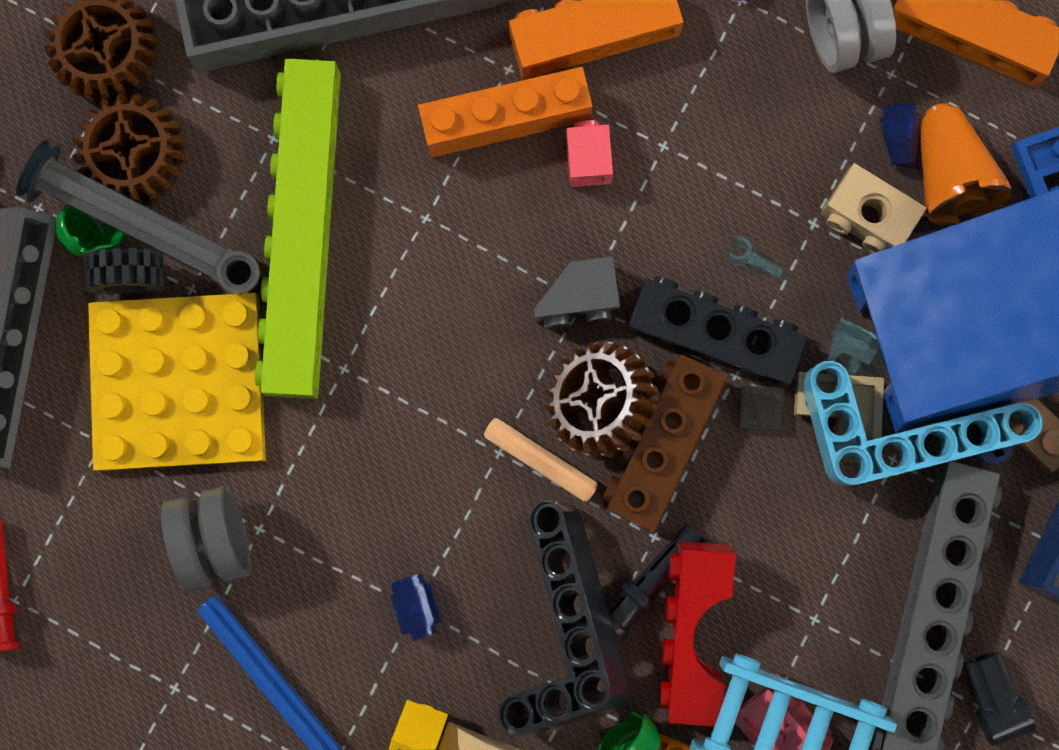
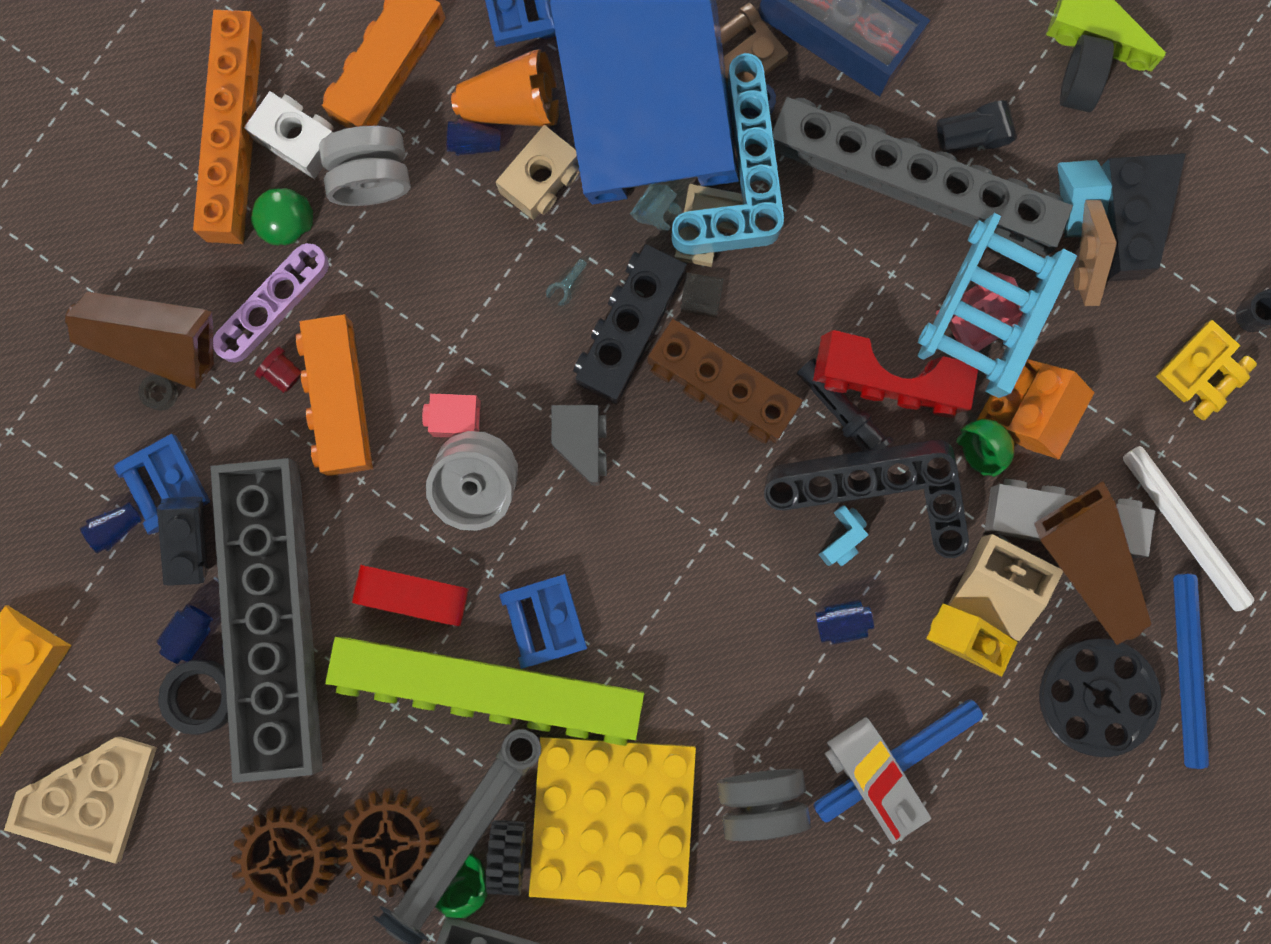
camera: 80 degrees left, 0 degrees up
(248, 662) = (878, 779): none -> light grey door
(382, 293) = (555, 617): none -> blue plate
(390, 136) = (410, 595): none -> red beam
(497, 597) = (844, 548): none -> medium azure bracket
(506, 112) = (403, 486): orange brick -> none
(518, 181) = (472, 481): none -> light grey wheel
(540, 459) = (724, 494): light nougat axle -> none
(618, 411) = (649, 435): reddish brown gear -> none

